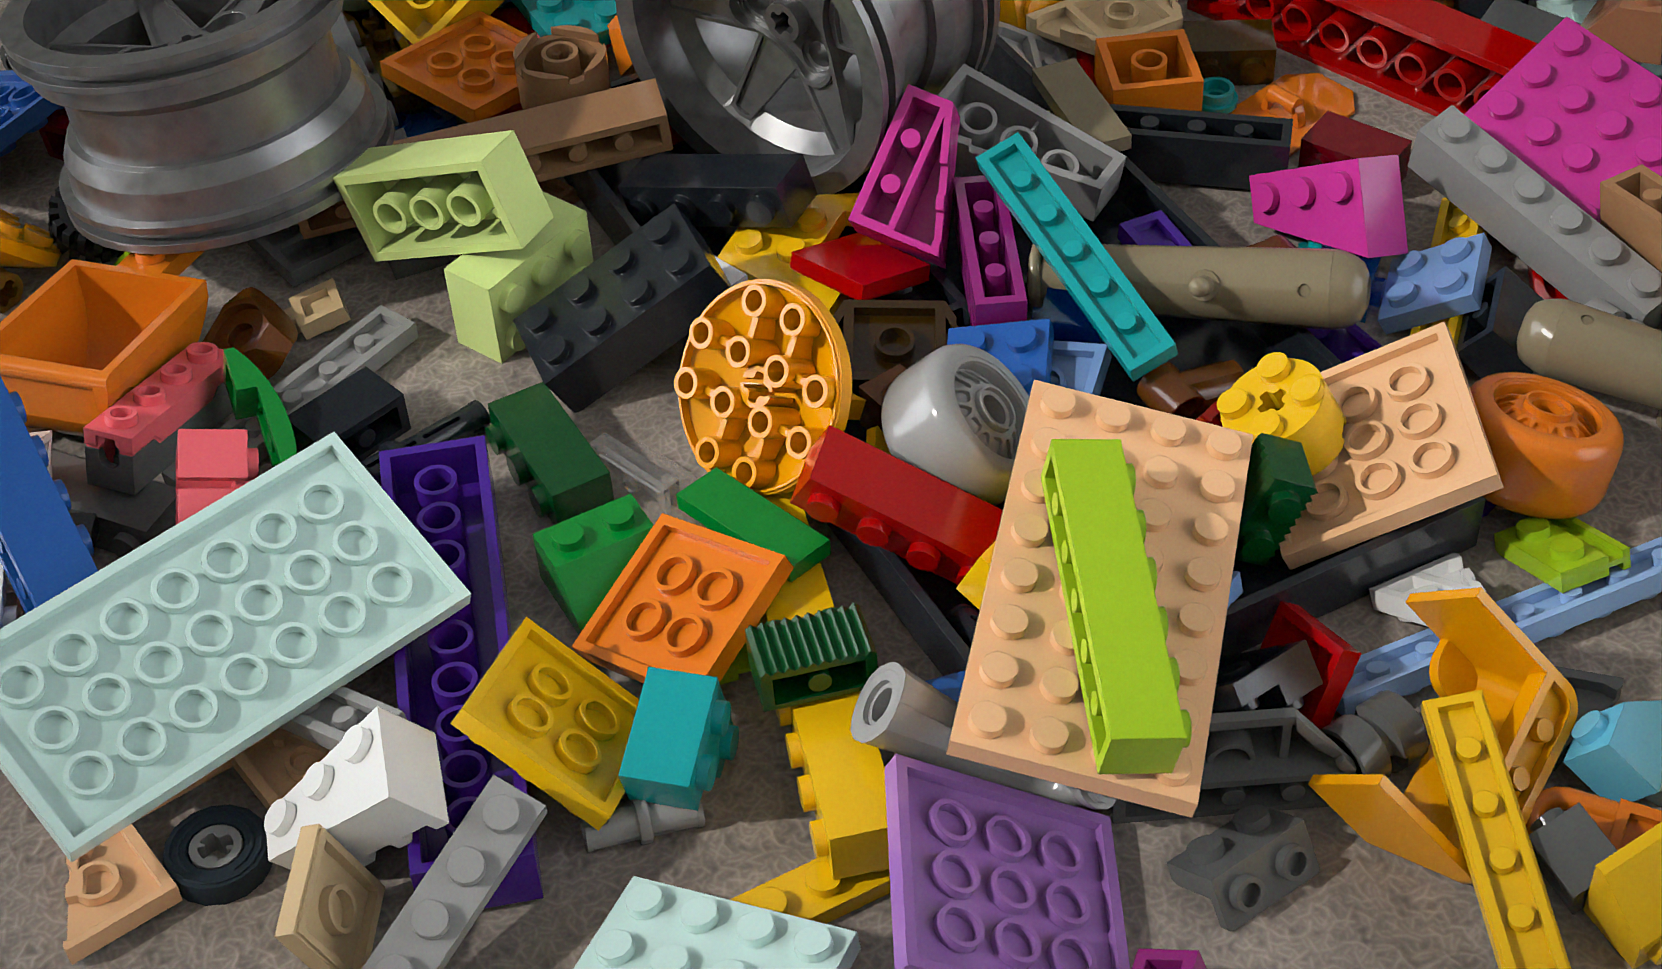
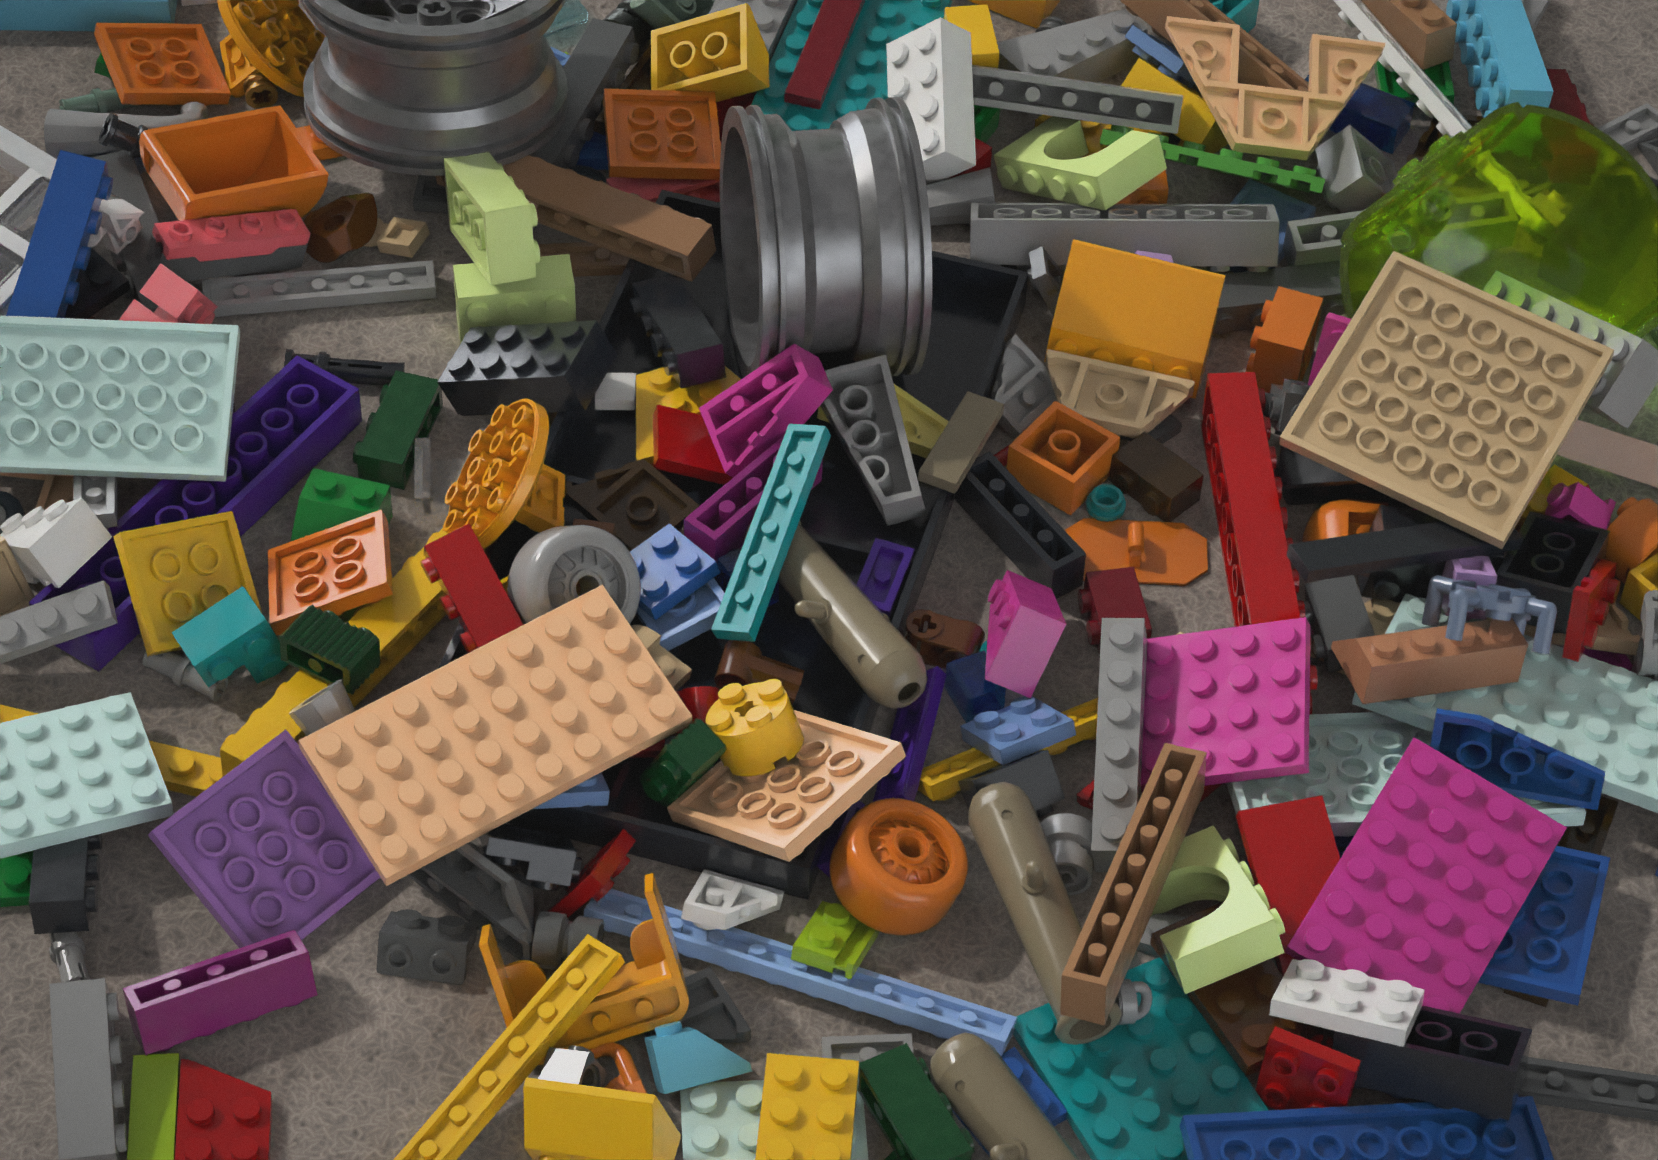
camera: 40 degrees right, 5 degrees up
(254, 396) = (270, 307): green slope -> none
(359, 410) = (326, 324): black brick -> none
(560, 66) = (681, 176): medium nougat brick -> none
(743, 514) = (417, 528): green tile -> none
(1113, 608) = (455, 736): lime brick -> none

